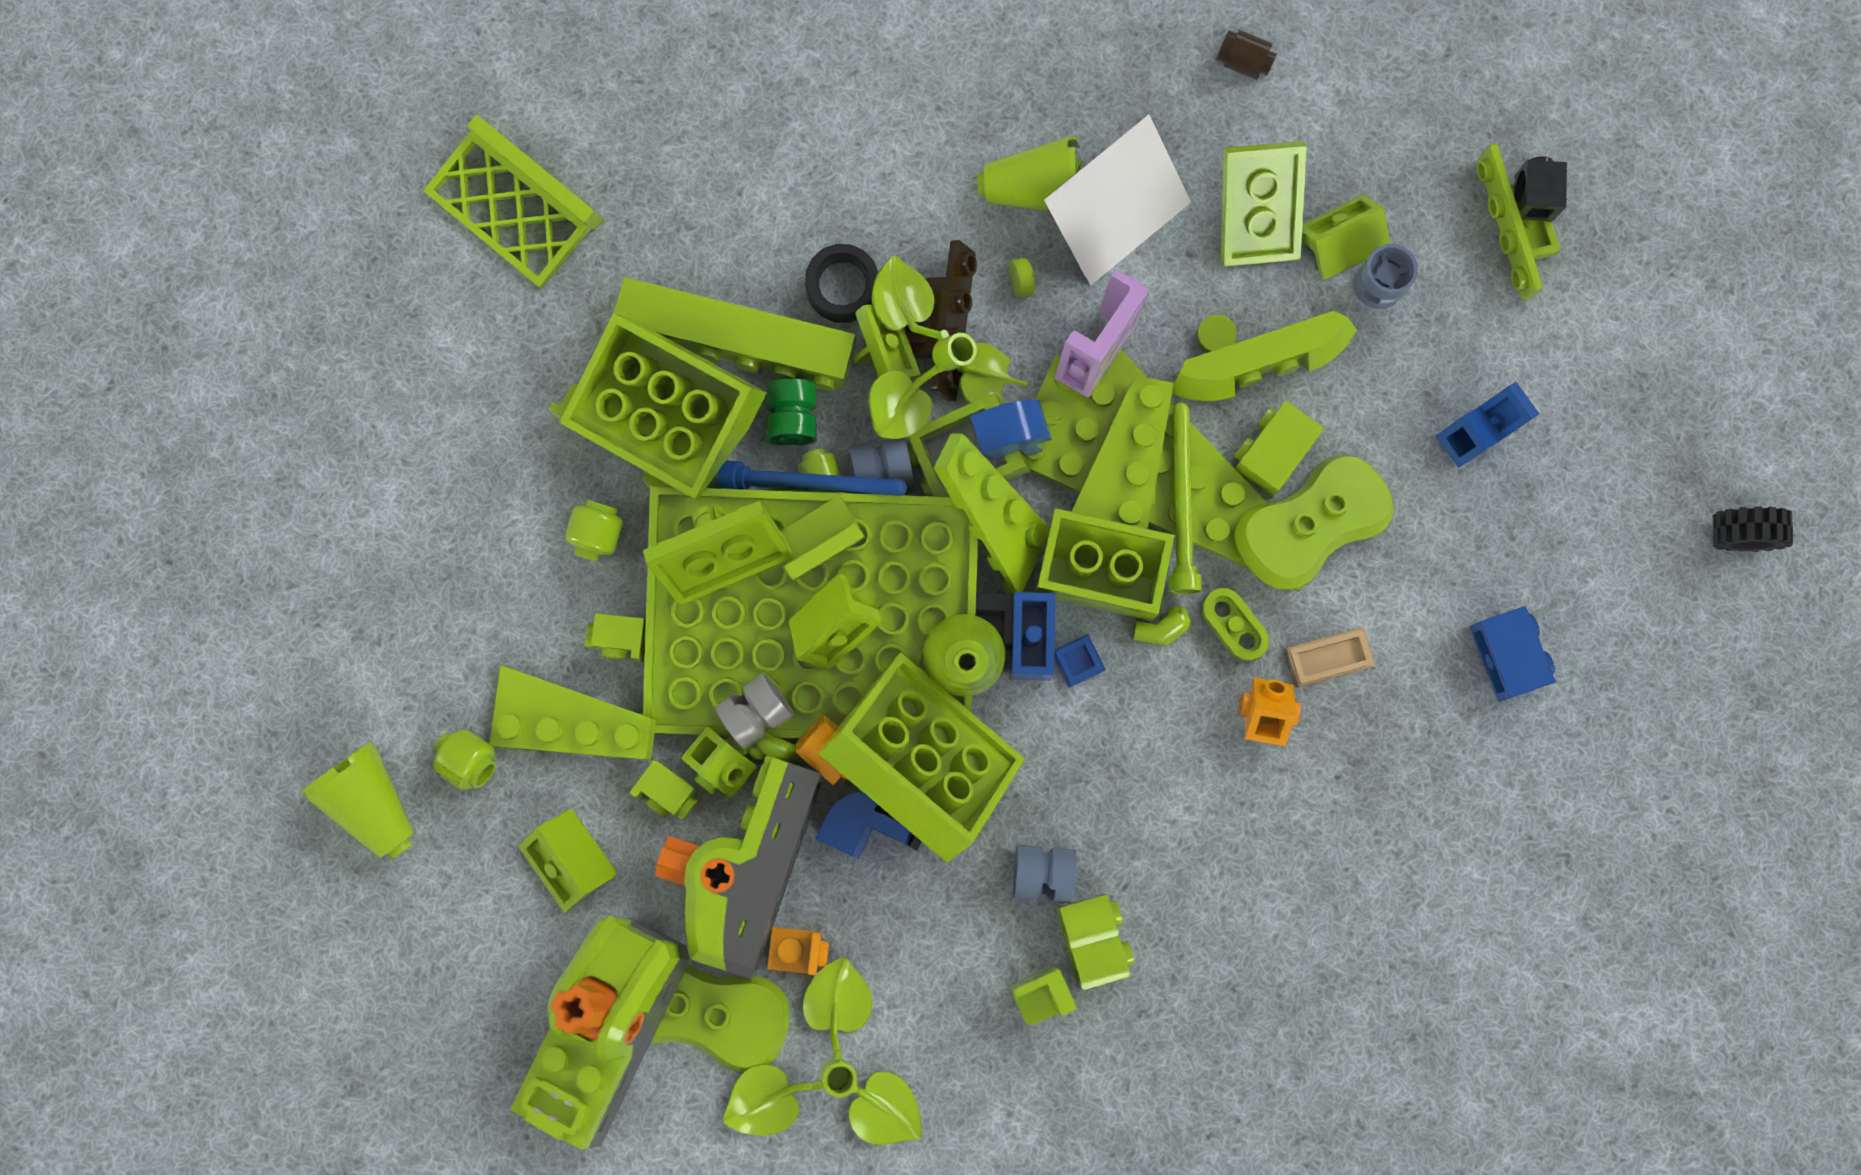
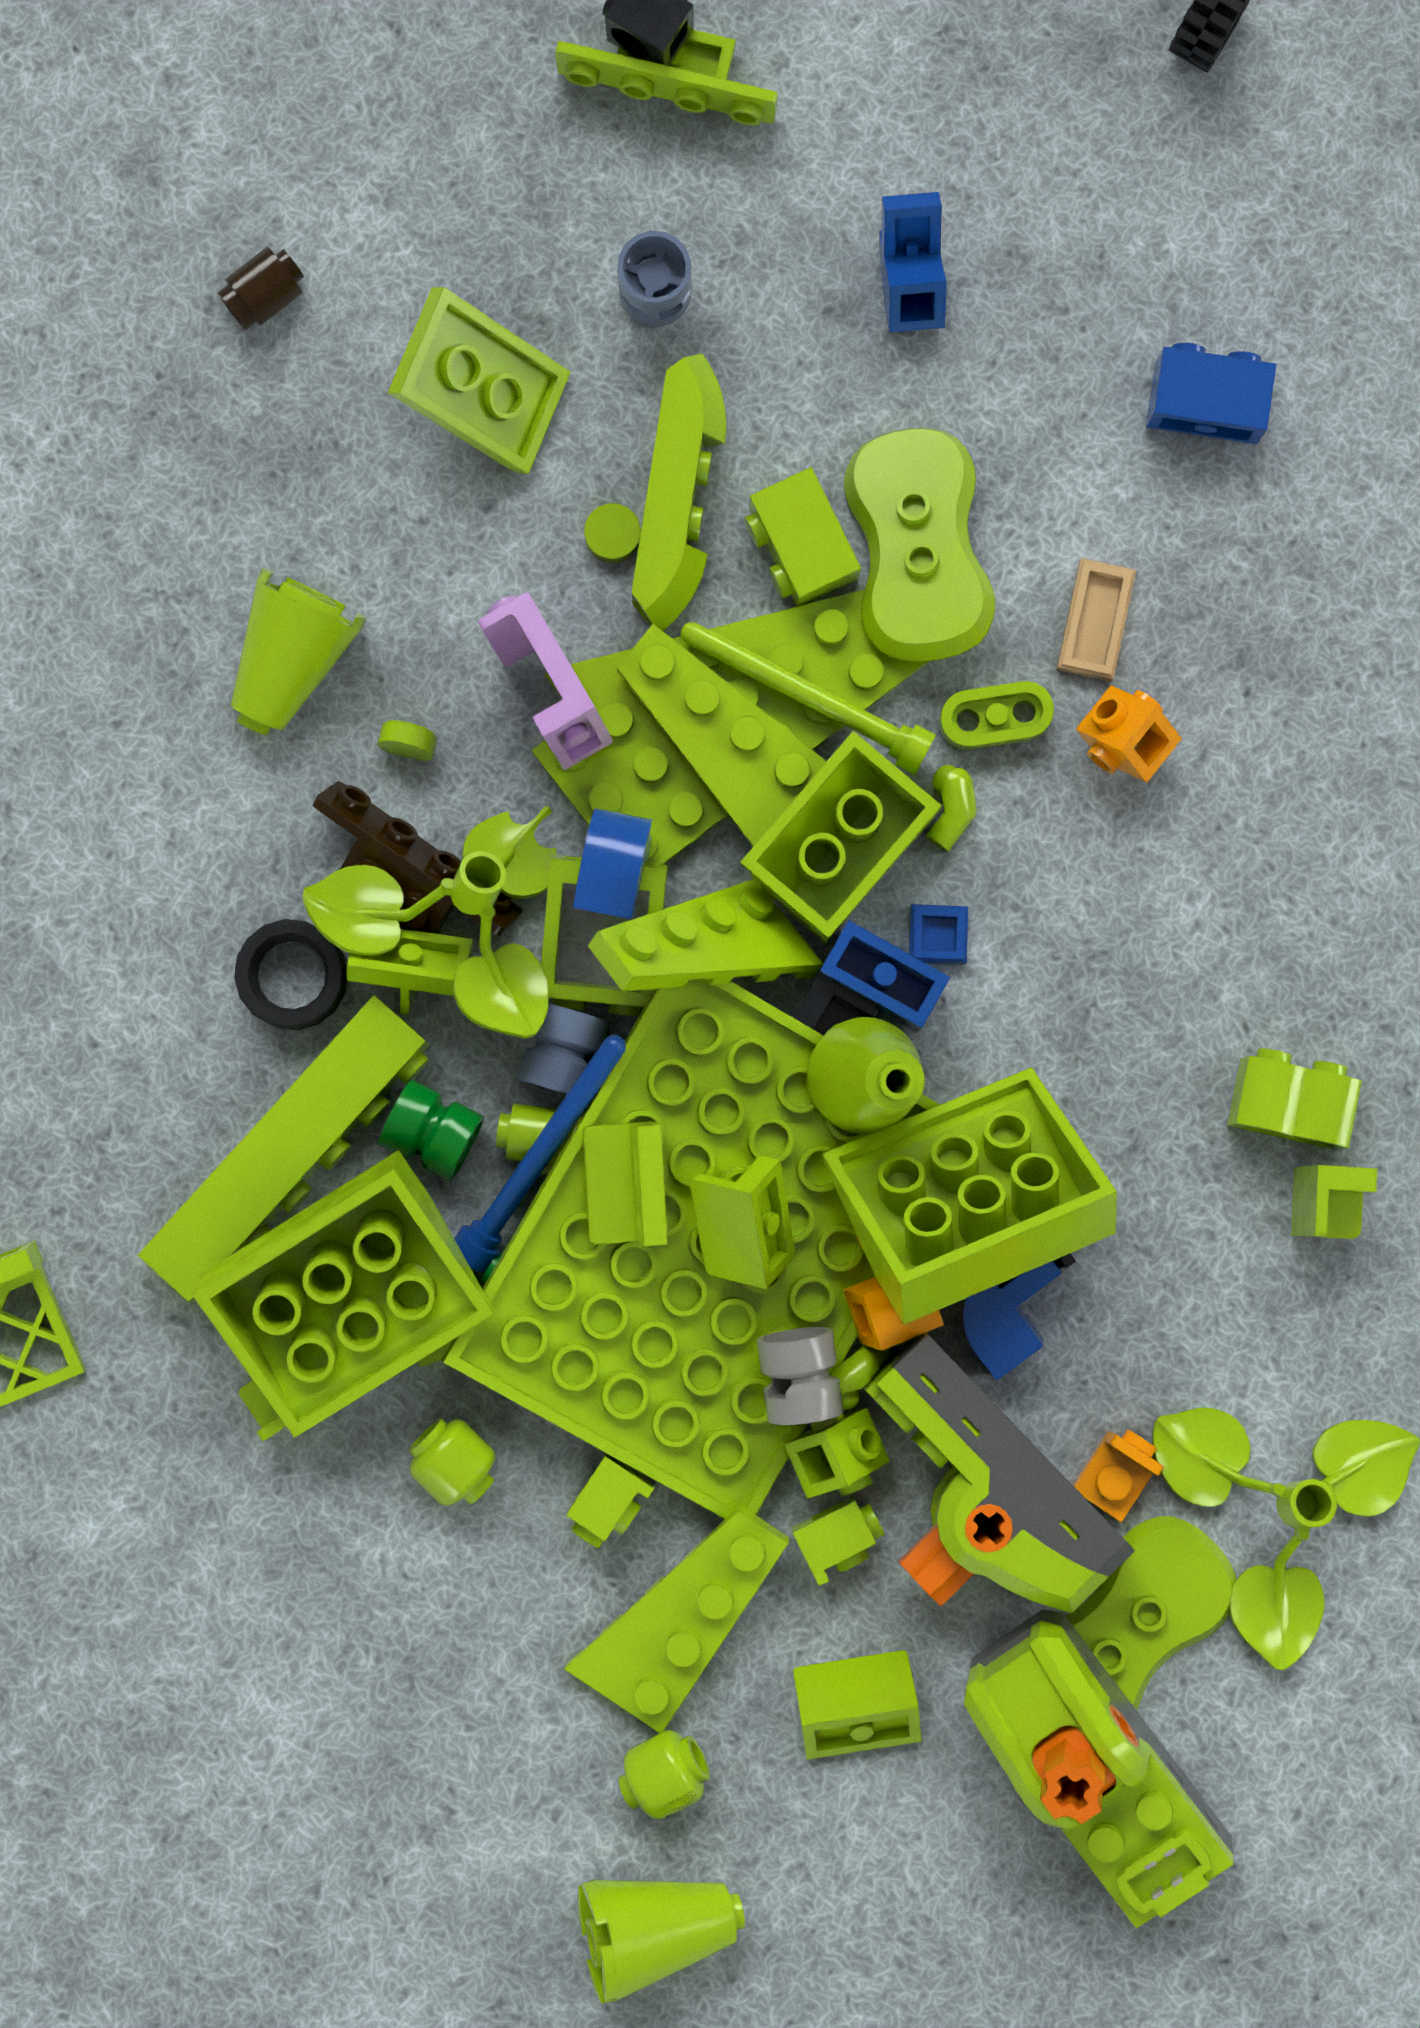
camera: 60 degrees left, 5 degrees up
(717, 551) = (579, 1319): lime plate -> none
(1044, 874) = (1183, 1118): sand blue wheel -> none
(1118, 200) = (375, 562): white sticker -> none
(1346, 235) = (570, 295): lime panel -> none

